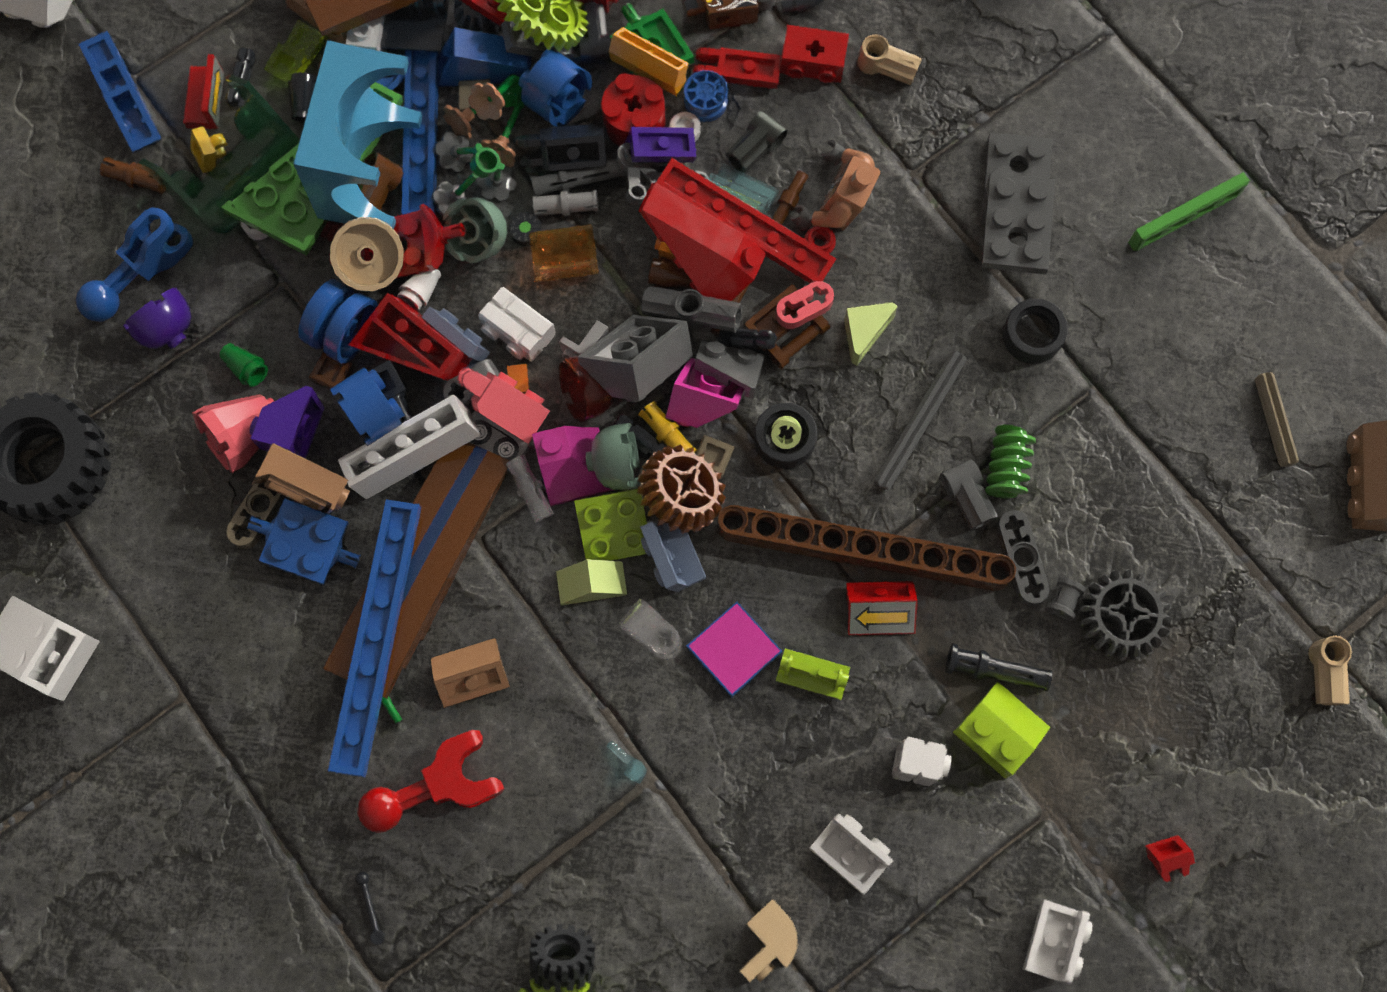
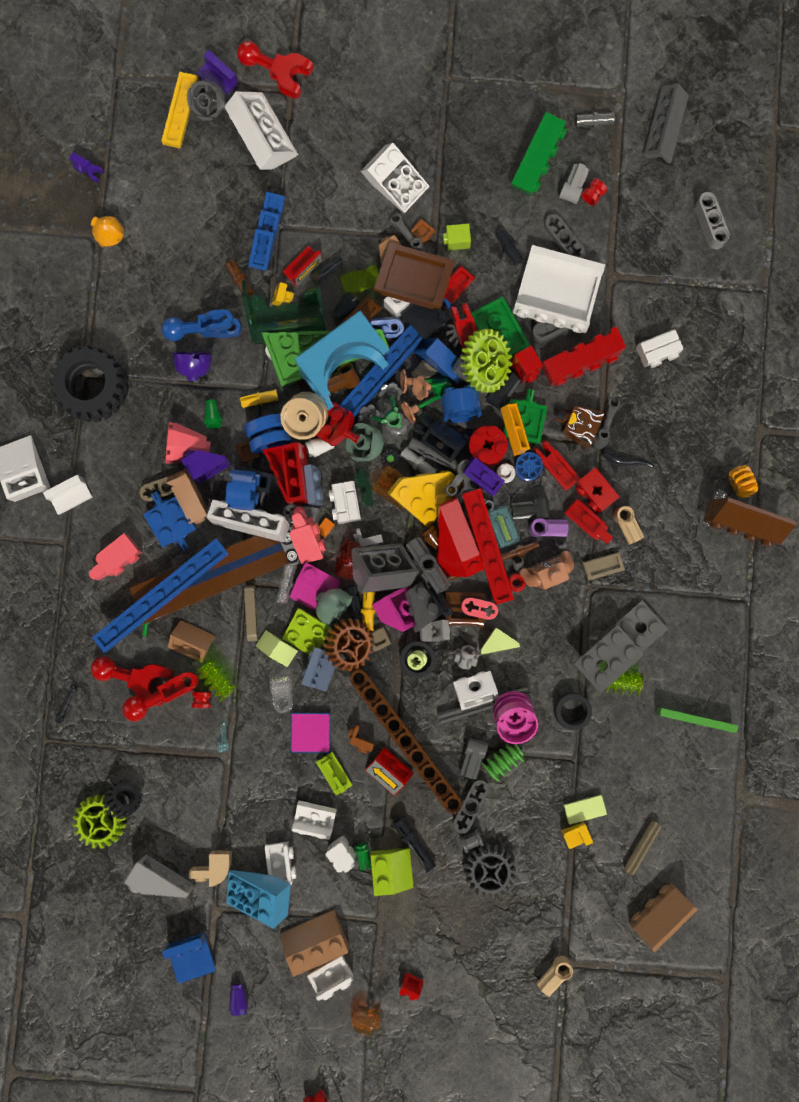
camera: 40 degrees right, 10 degrees up
(131, 626) = (68, 494): none -> white panel
(270, 651) = (115, 557): none -> coral hinge
(289, 295) = (259, 398): none -> yellow axle
(502, 746) = (136, 708): none -> red piece
(518, 564) = (251, 613): none -> dark tan beam
(522, 283) = (363, 483): none -> clear green slope
(549, 688) = (217, 680): none -> clear neon green piece
(551, 733) = (201, 699): none -> red wheel
(607, 231) = (423, 494): none -> yellow plate
(777, 380) = (435, 631): none -> light grey bracket
(798, 143) = (551, 528): none -> medium lavender piece
(815, 602) = (361, 744): none -> dark orange bracket
(839, 97) = (588, 521): none -> red hinge
(842, 754) = (314, 820): none -> white bracket
(844, 378) = (466, 657): none -> light grey gear
(863, 920) = (259, 896): none -> dark azure slope
(906, 135) = (603, 566): none -> dark tan tile
(907, 397) = (469, 698): none -> white brick
(955, 747) = (363, 856): none -> green pin
(974, 392) = (515, 717): none -> dark pink wheel
(993, 916) = (314, 943): none -> medium nougat slope
(1067, 238) = (627, 682): none -> clear neon green piece
(1155, 957) = (365, 1020): none -> clear orange head
(1164, 436) = (585, 809): none -> yellowish green tile
(1186, 474) = (577, 835): none -> yellow panel

